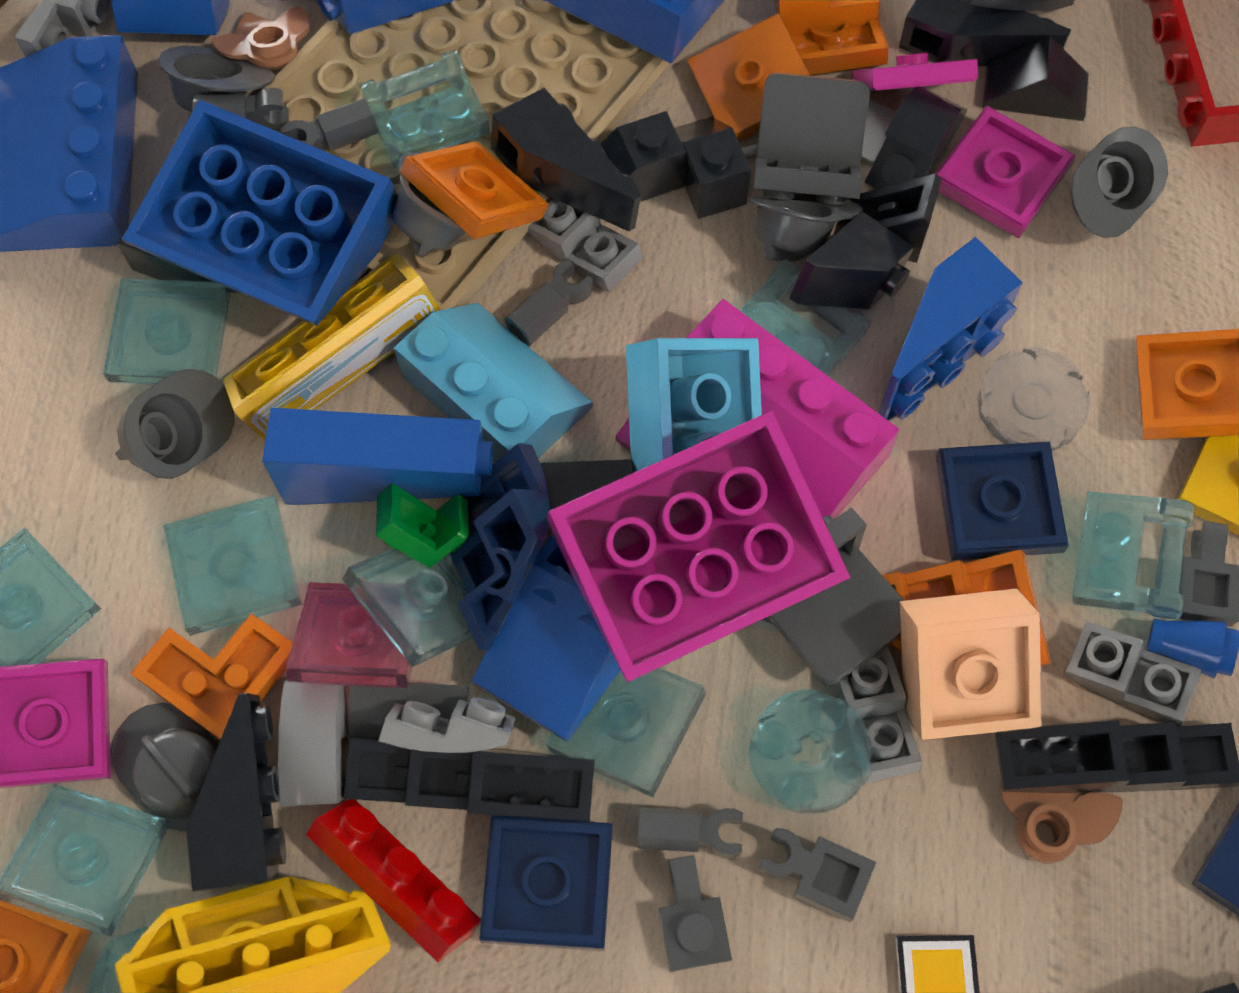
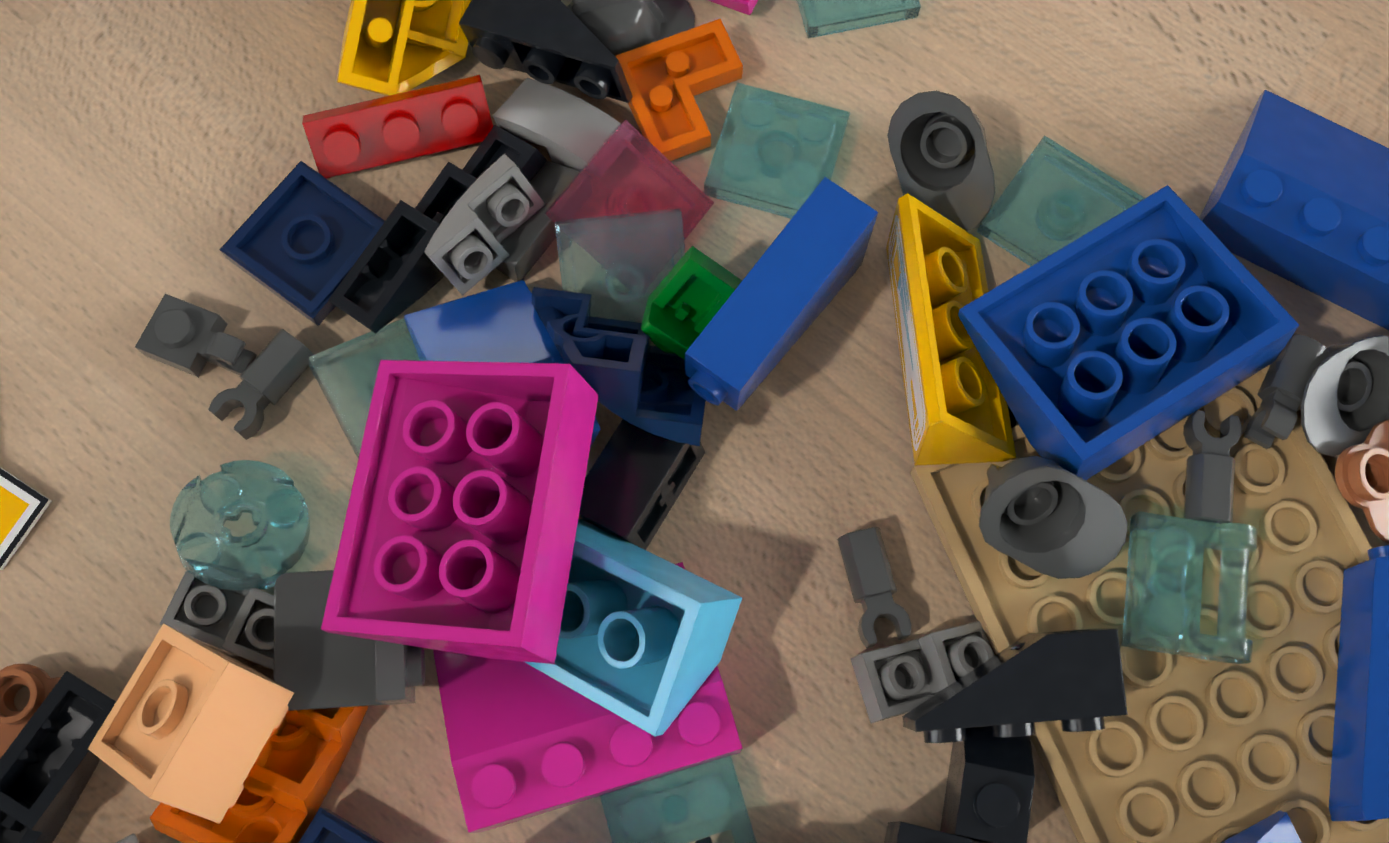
camera: 120 degrees right, 5 degrees up
(474, 189) = (1037, 563): orange plate -> none
(485, 373) = (812, 471): medium azure slope -> none
(828, 876) = (137, 469): dark grey plate -> none

